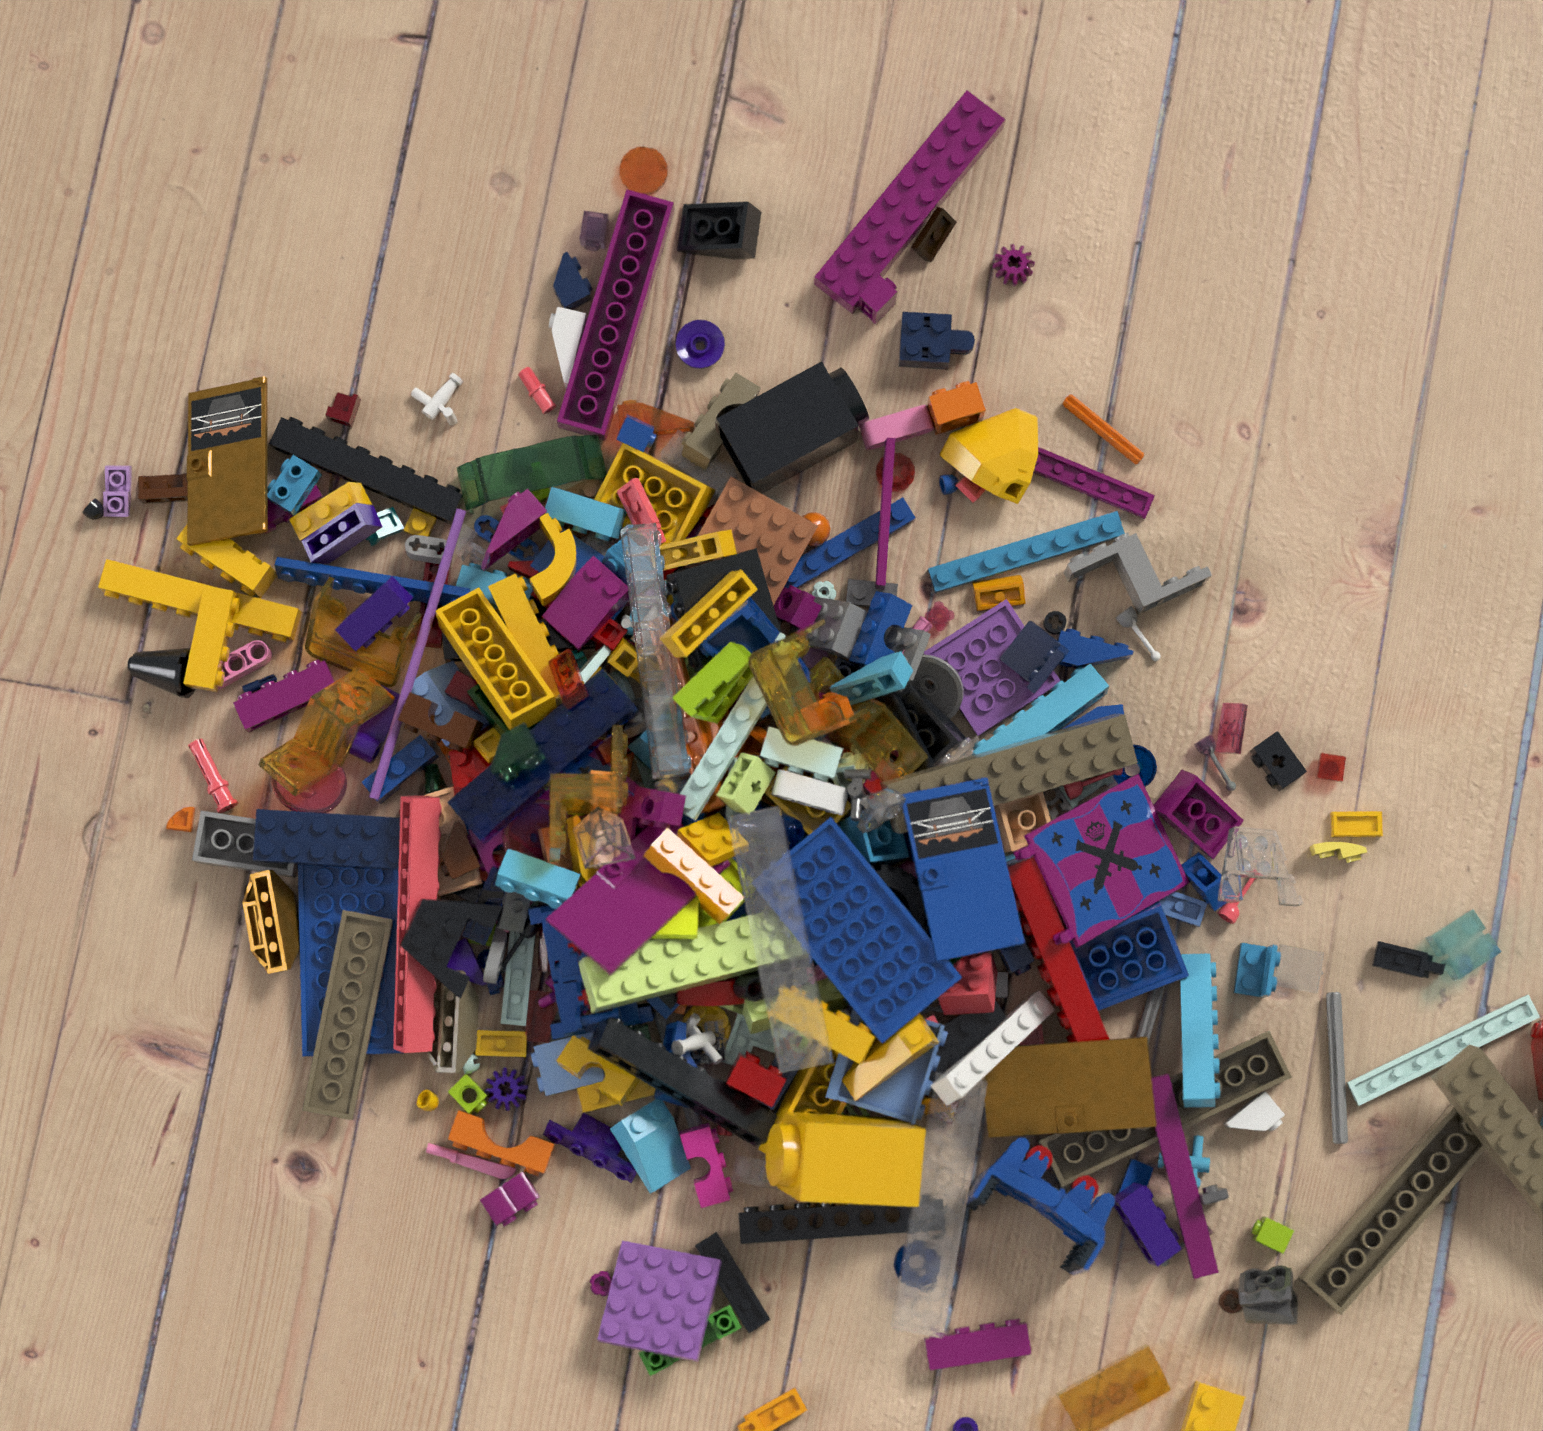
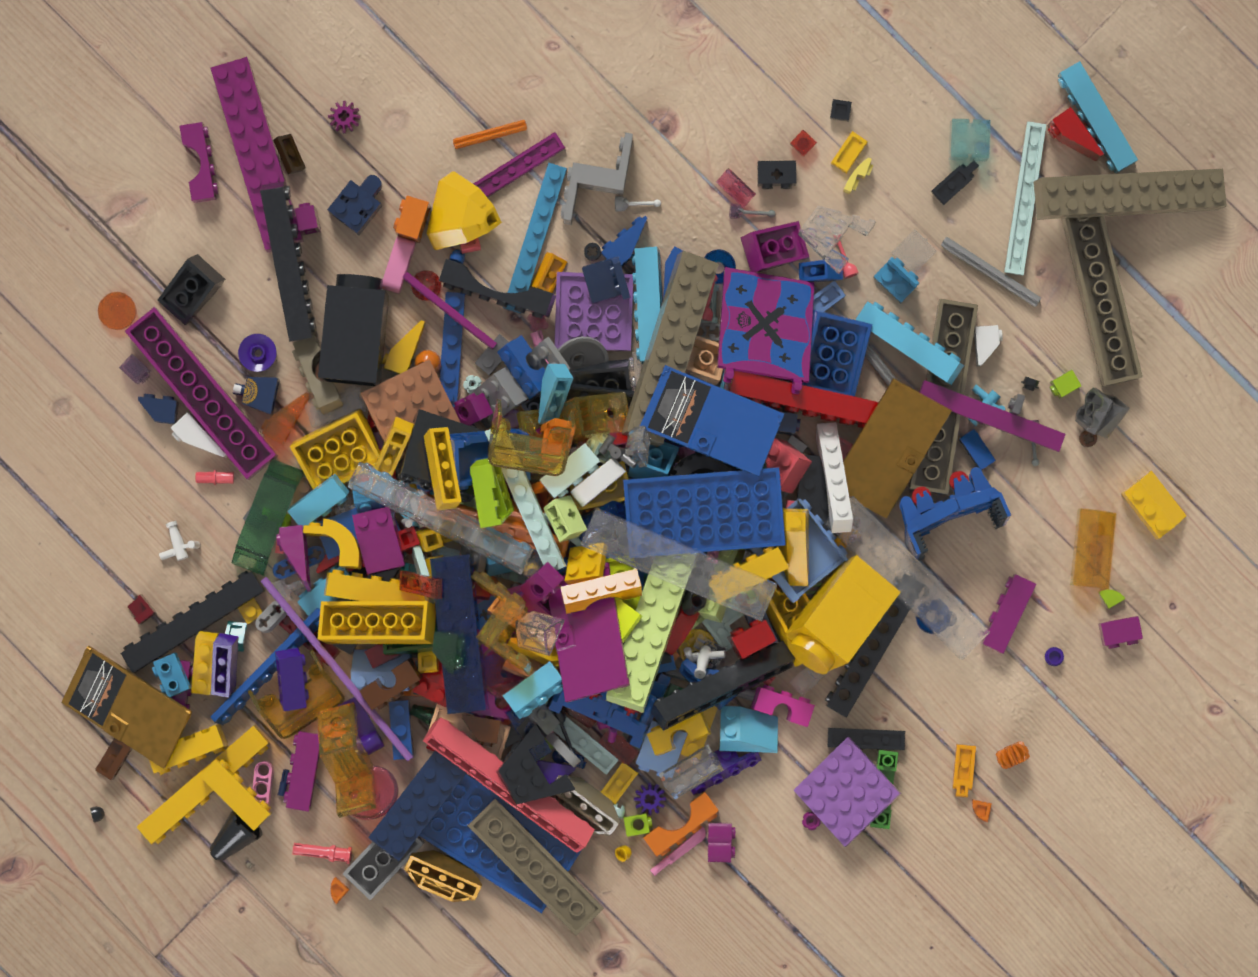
camera: 55 degrees left, 5 degrees up
(117, 491) = (94, 790): lavender slope -> none
(565, 1113) = (691, 772): none -> clear brick
(636, 433) = (289, 433): blue brick -> none
(638, 505) = (339, 464): coral hinge -> none
(658, 374) = (259, 393): none -> torso
(807, 496) = (403, 352): none -> yellow slope
(818, 304) = (287, 262): none -> black brick
(836, 168) = (202, 186): none -> magenta arch
(958, 594) = (534, 300): none -> black arch
(1146, 1224) = (1005, 457): dark purple brick -> none
(1245, 1195) = (1030, 383): none -> black plate
(1395, 783) = (840, 110): none -> black plate

